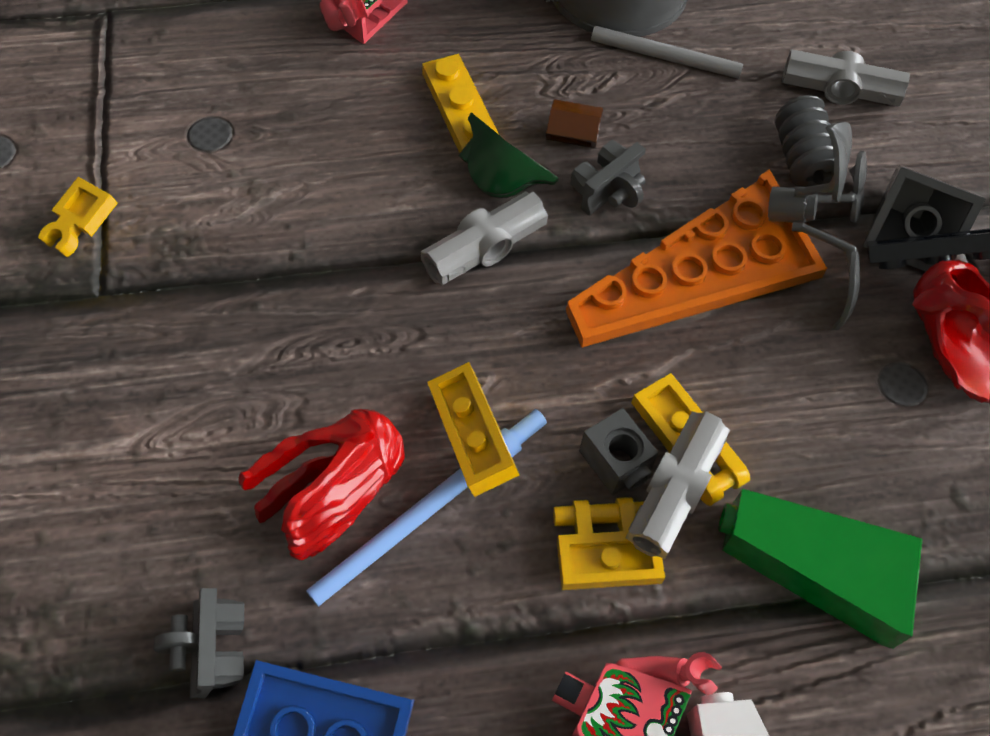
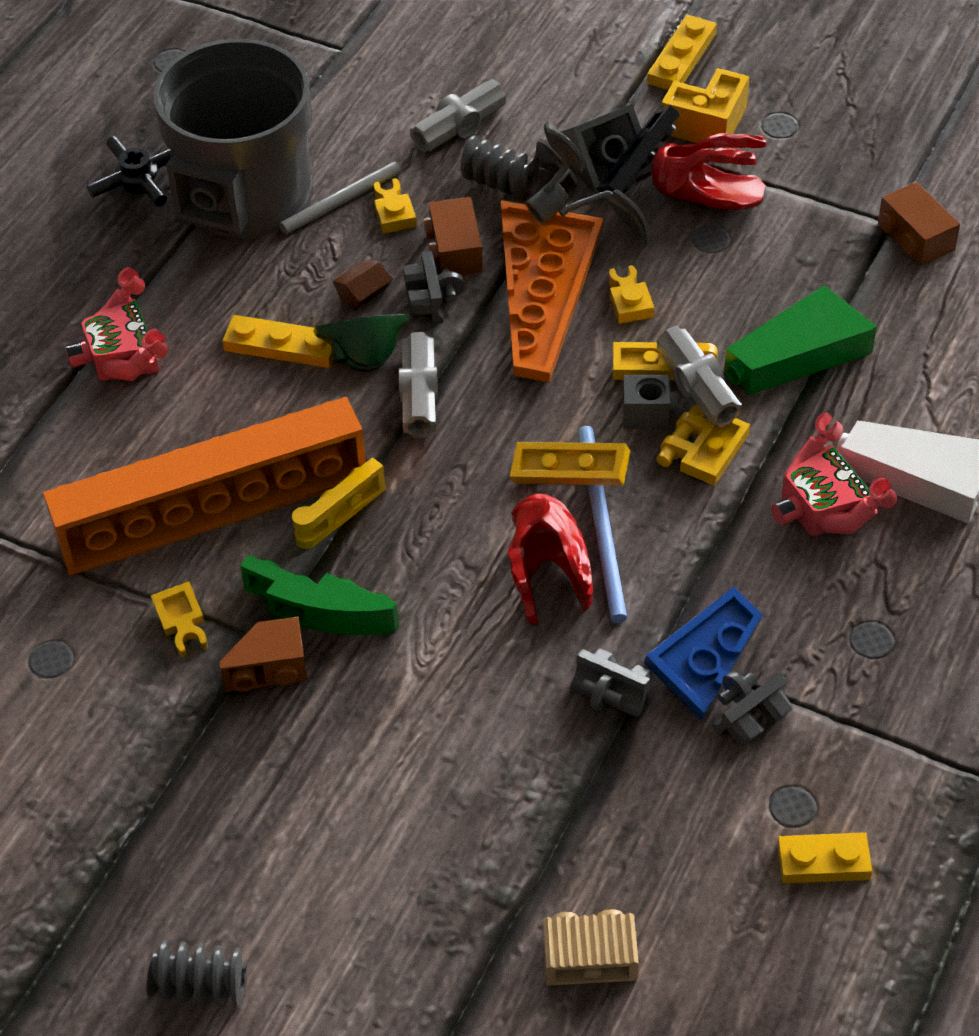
camera: 50 degrees left, 10 degrees down
(68, 306) = (265, 657): none -> dark orange slope
(157, 309) = (328, 607): none -> green slope
(229, 143) = (205, 485): none -> orange brick
(288, 258) = (338, 504): none -> yellow plate
(689, 99) = (393, 209): none -> yellow plate
(691, 160) = (454, 236): none -> dark orange brick
(753, 356) = (630, 299): none -> yellow plate

